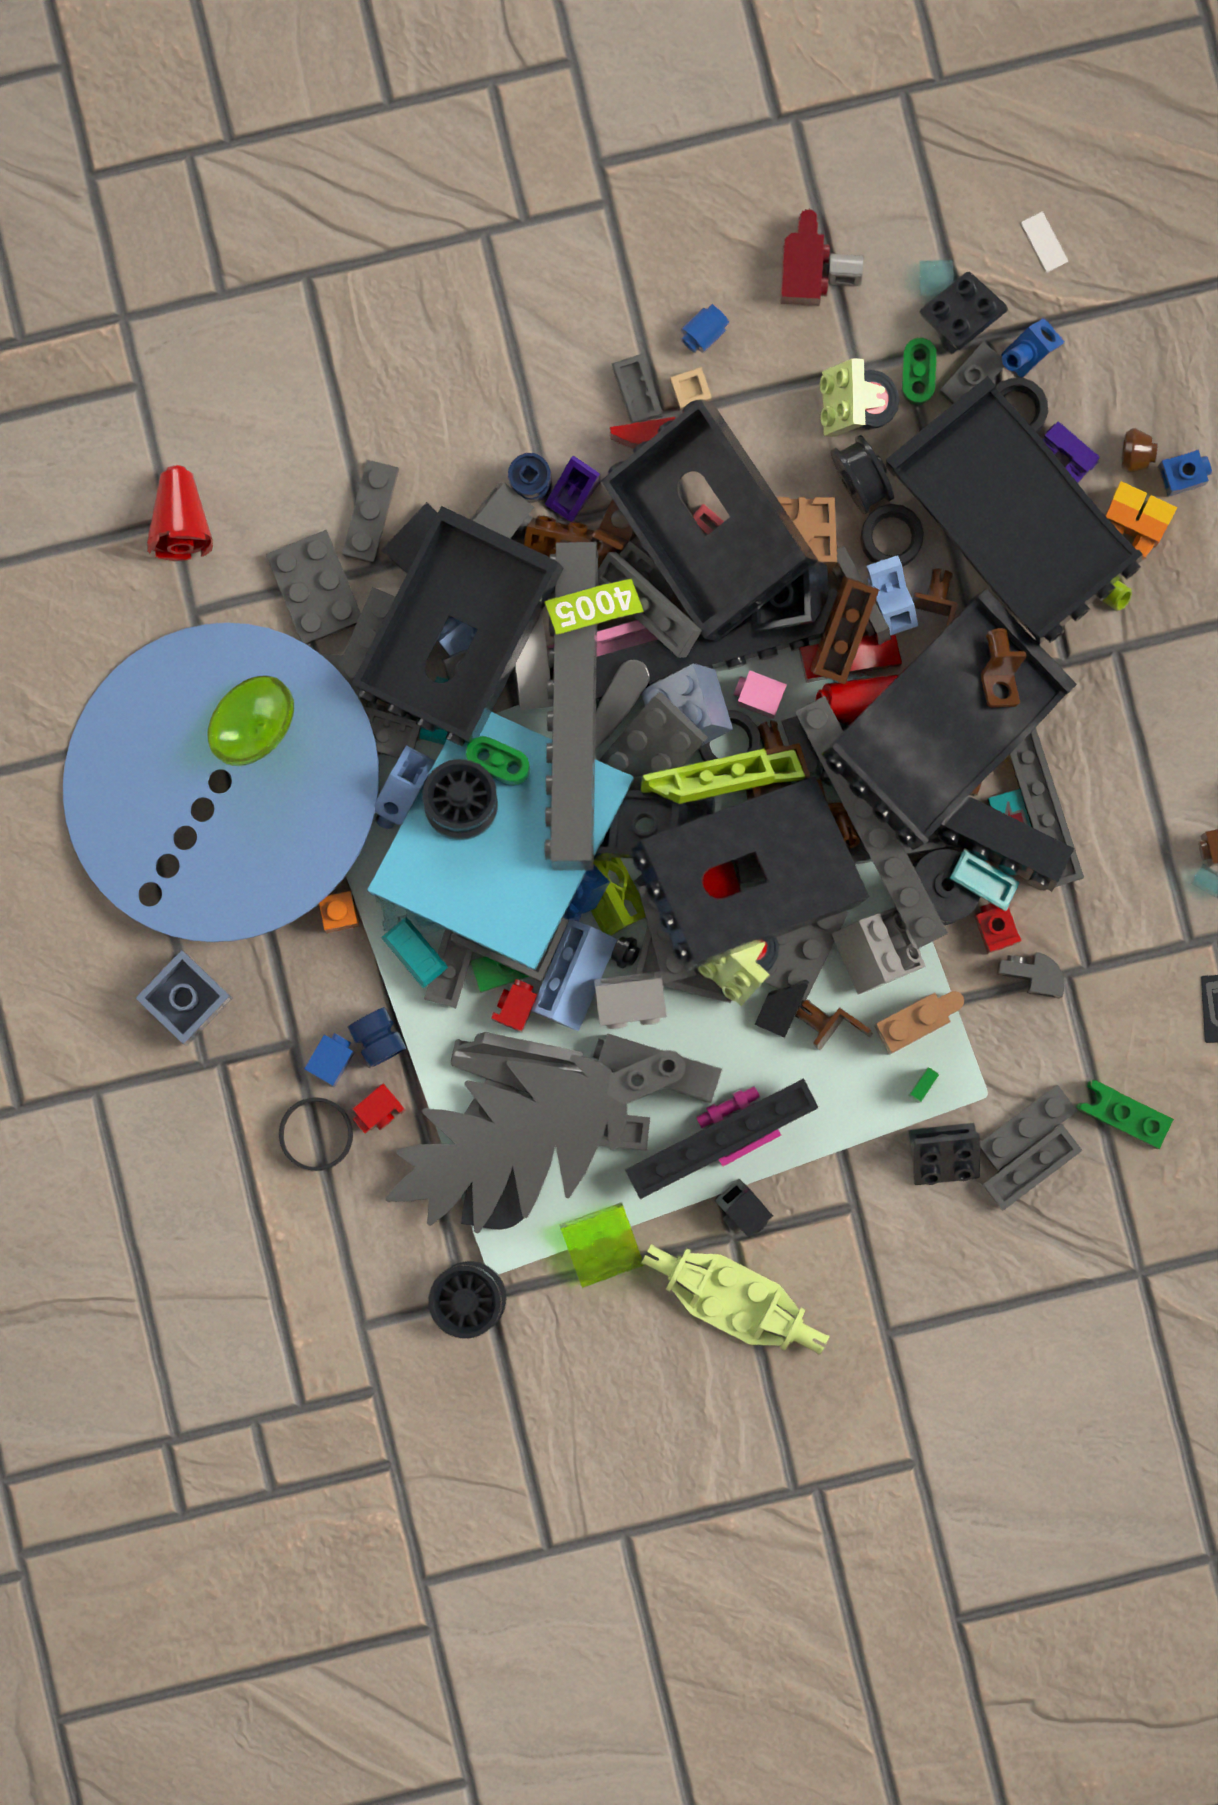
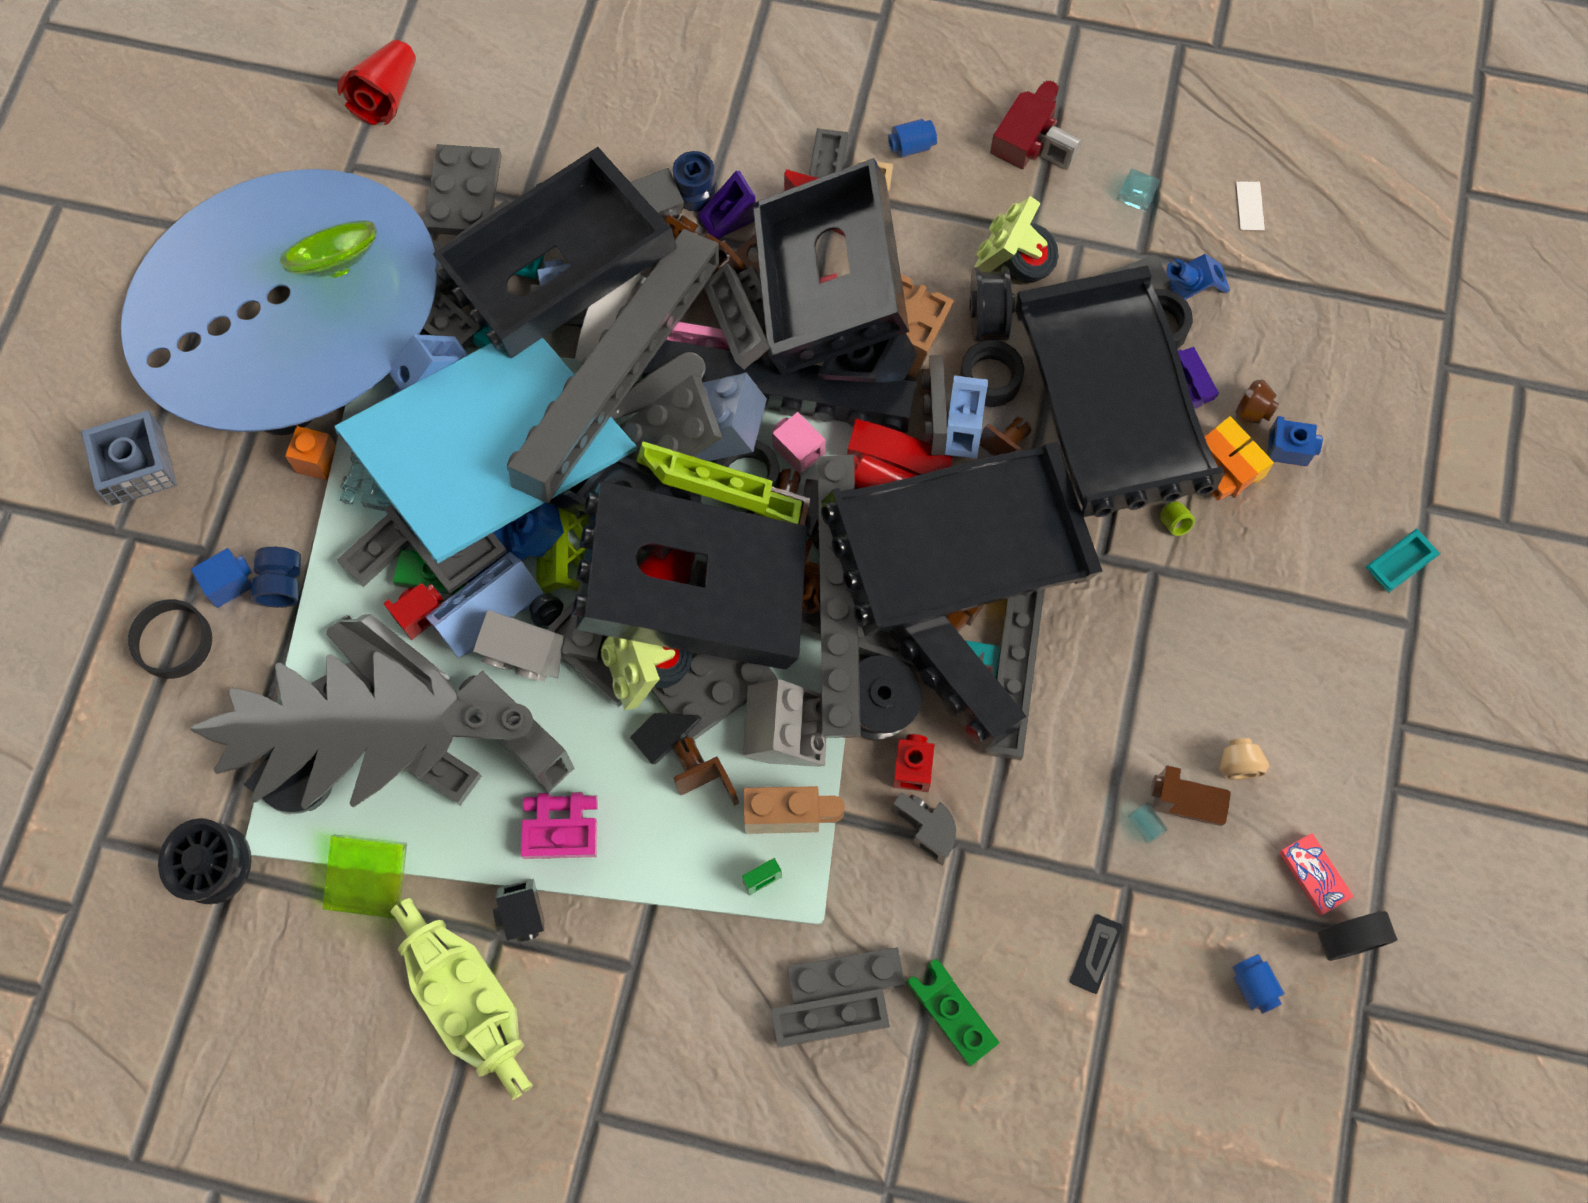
camera: 25 degrees right, 15 degrees down
(370, 511) = (546, 153): dark grey plate -> none
(377, 1109) = (237, 641): red brick -> none
(414, 952) = (353, 514): teal tile -> none
(460, 799) = (464, 386): black wheel -> none
(500, 760) = (523, 376): green plate -> none
(593, 606) = (684, 287): lime sticker -> none
(721, 1138) = (532, 825): black plate -> none
(844, 629) = (903, 410): reddish brown brick -> none
(919, 371) = (1083, 254): green plate -> none
(945, 1154) = (748, 959): black bracket -> none
(963, 311) = (1150, 221): black bracket -> none
(984, 880) = (922, 706): tile -> none
(1001, 669) = (1036, 513): reddish brown bracket -> none

